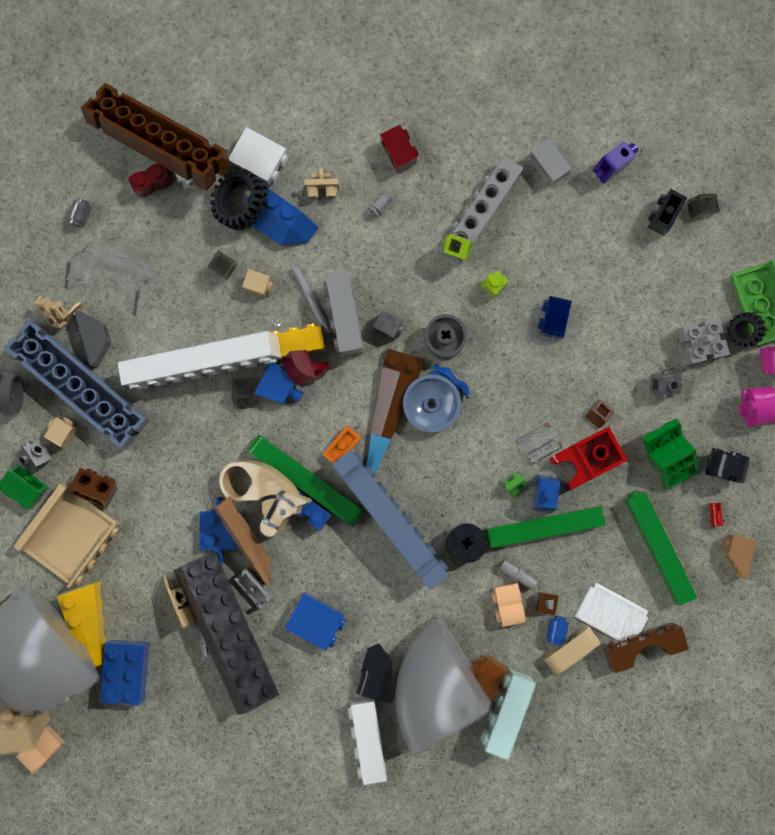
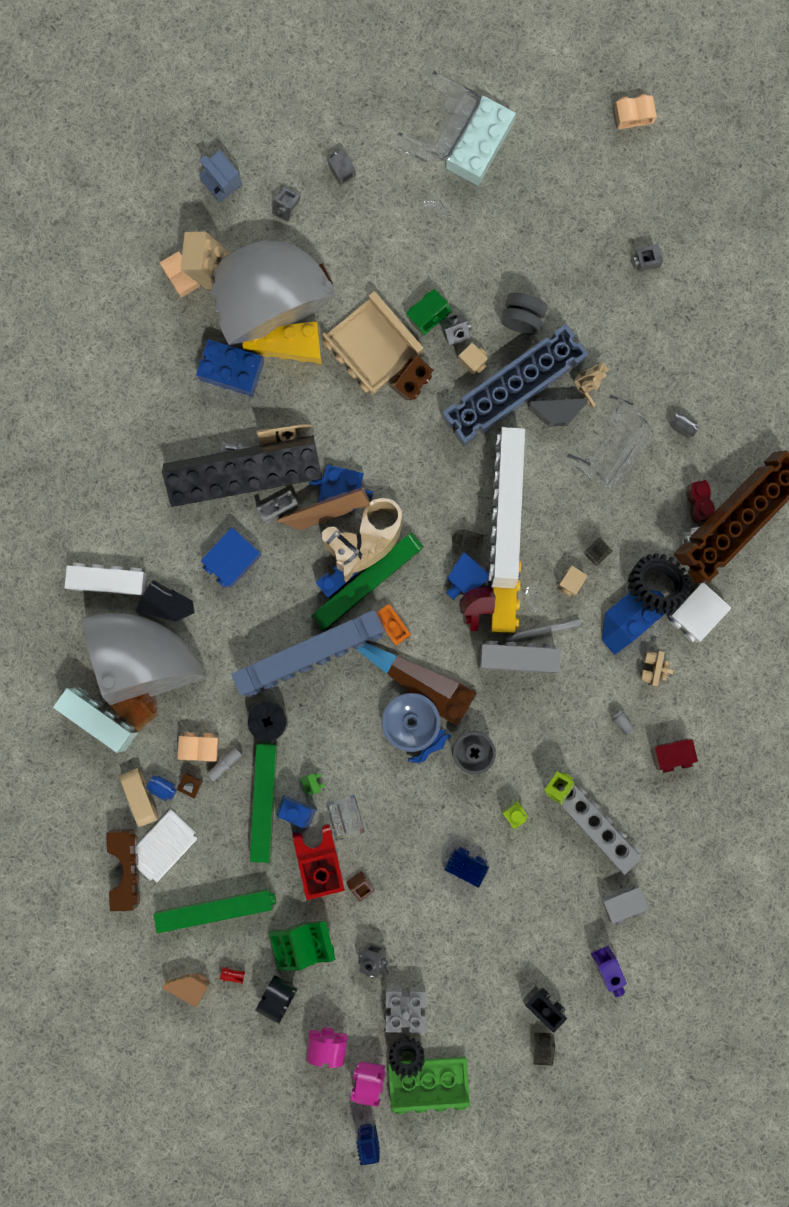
camera: 105 degrees right, 0 degrees up
(388, 325) = (499, 699): flat silver brick -> none

